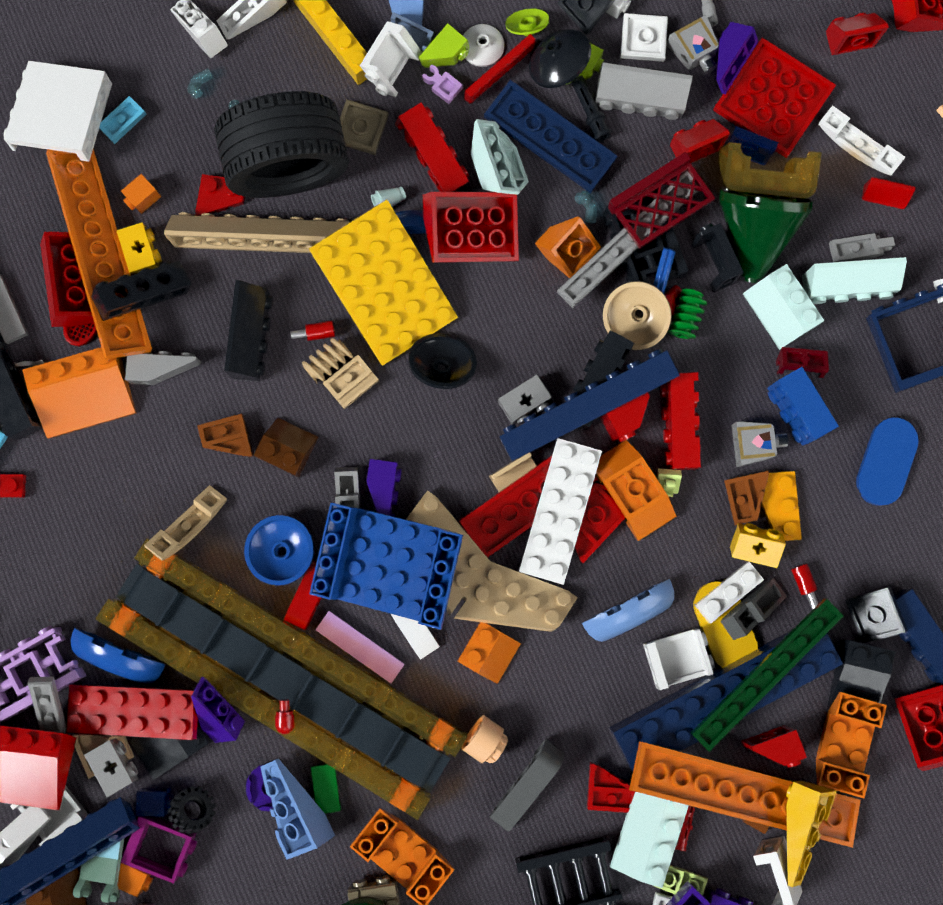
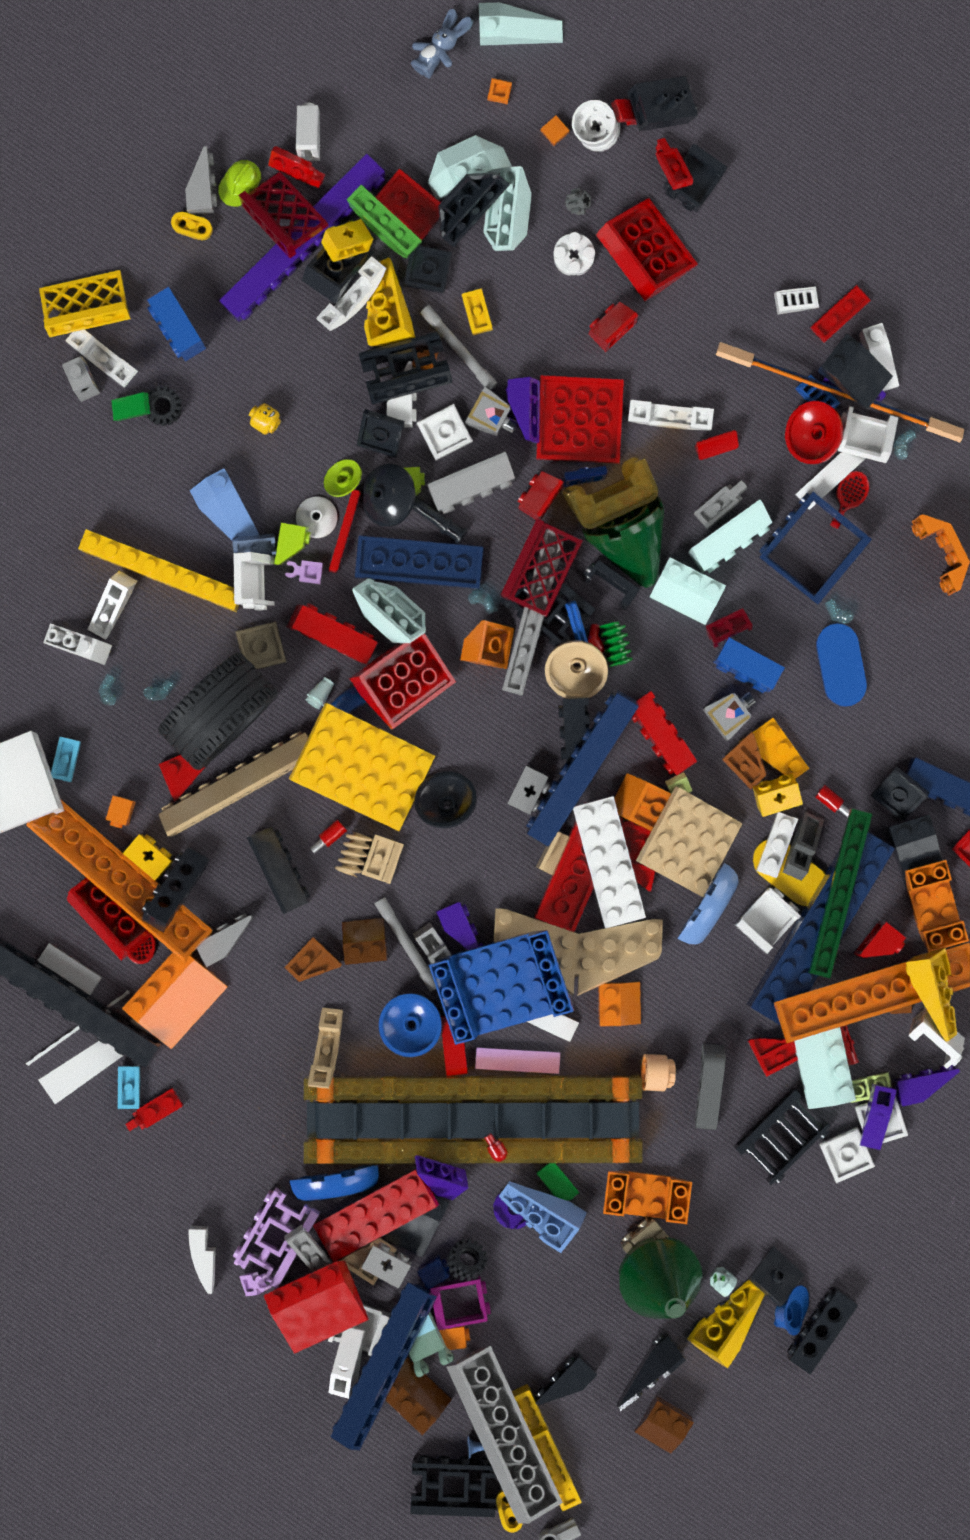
camera: 25 degrees left, 5 degrees up
(324, 437) = (389, 915): none -> light grey piece
(626, 418) = (618, 760): red slope -> none
(648, 537) = (689, 841): none -> tan plate
(910, 413) = (837, 614): none -> clear light blue arm

